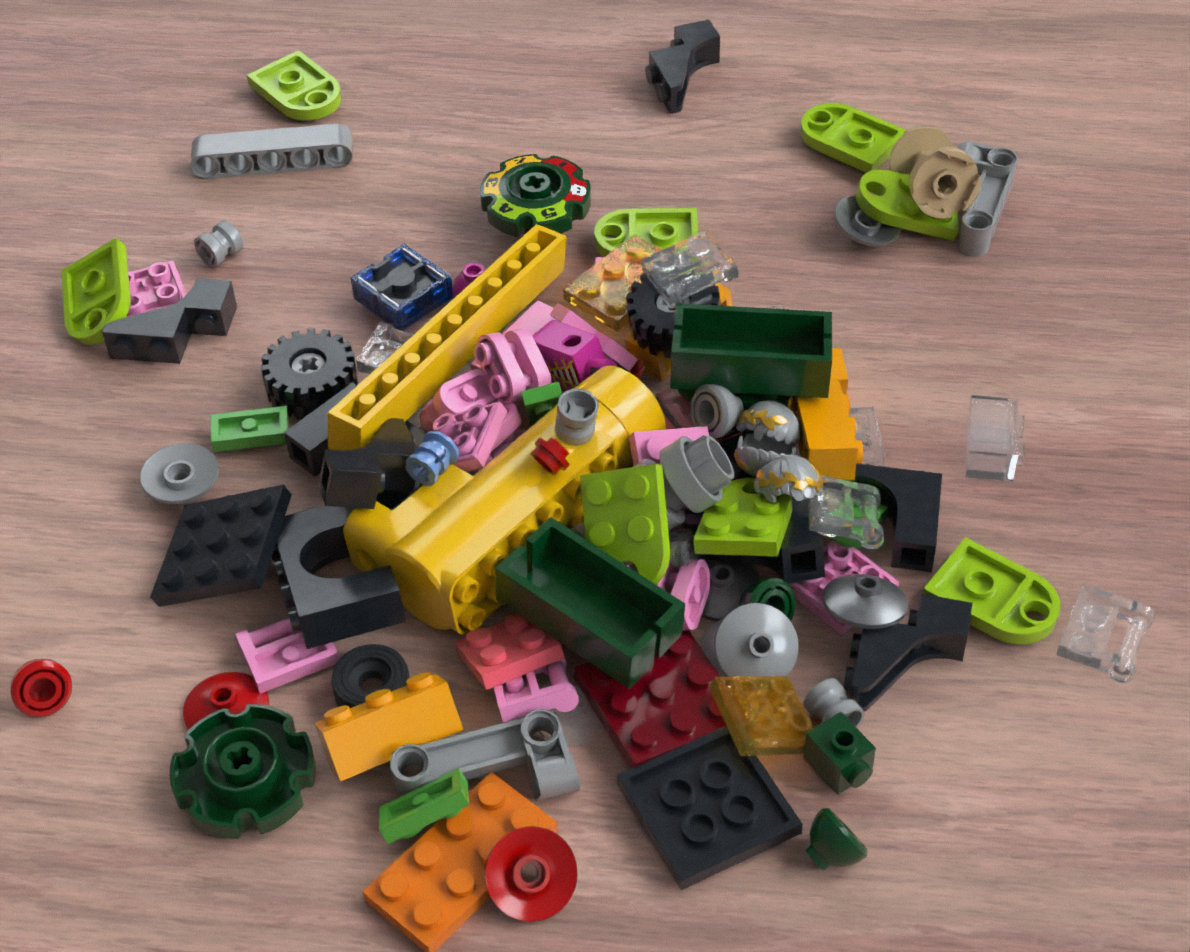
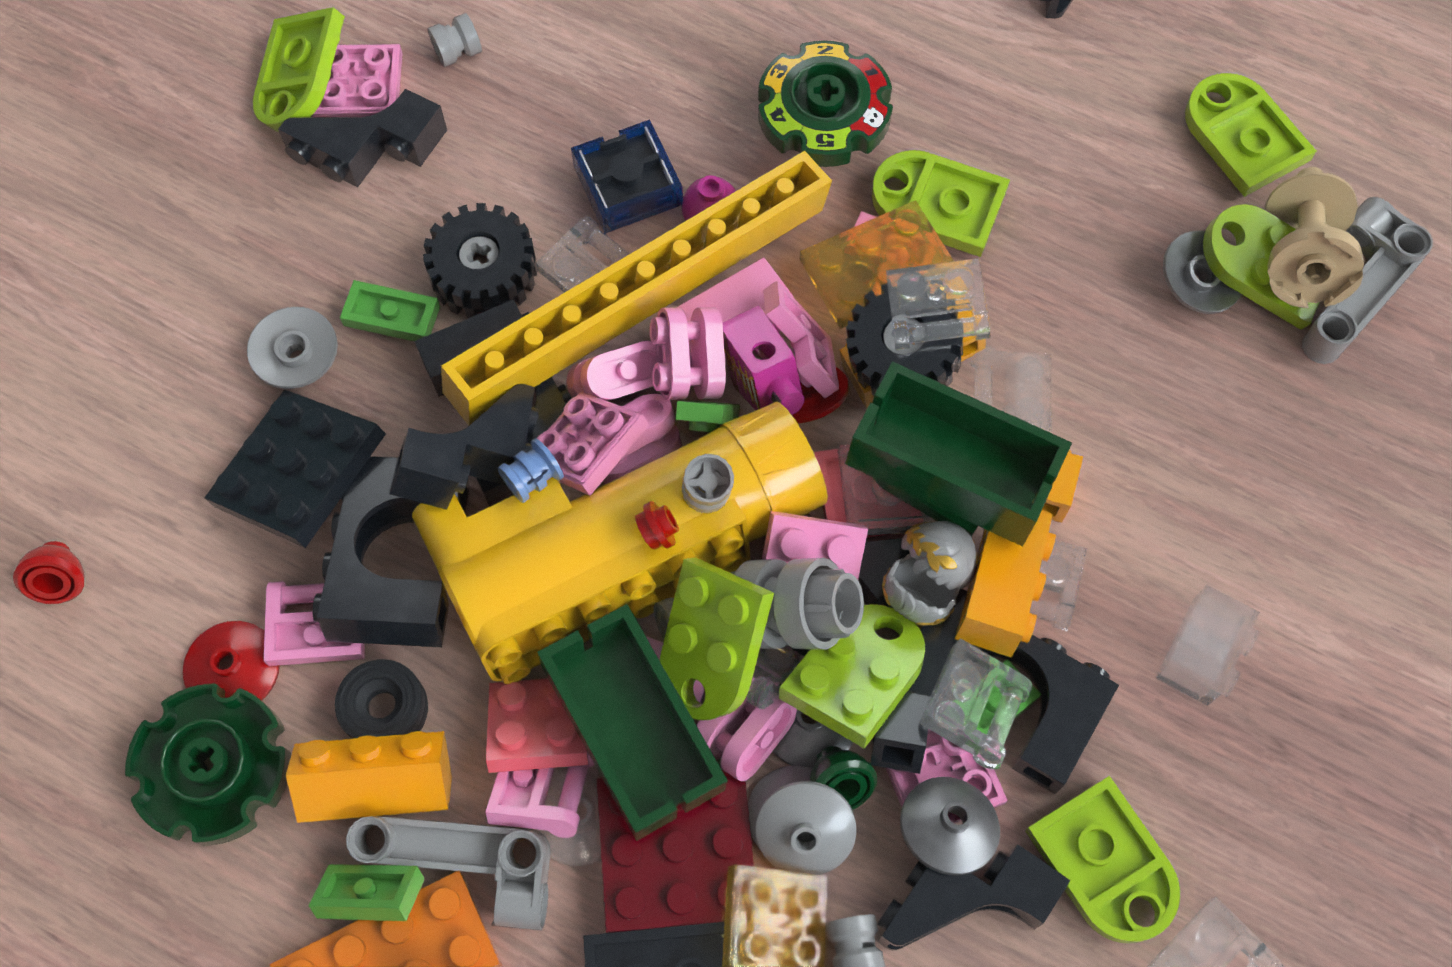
camera: 20 degrees right, 20 degrees up
(715, 408) = (888, 510): light grey brick -> none
(788, 476) = (922, 650): light grey hair -> none

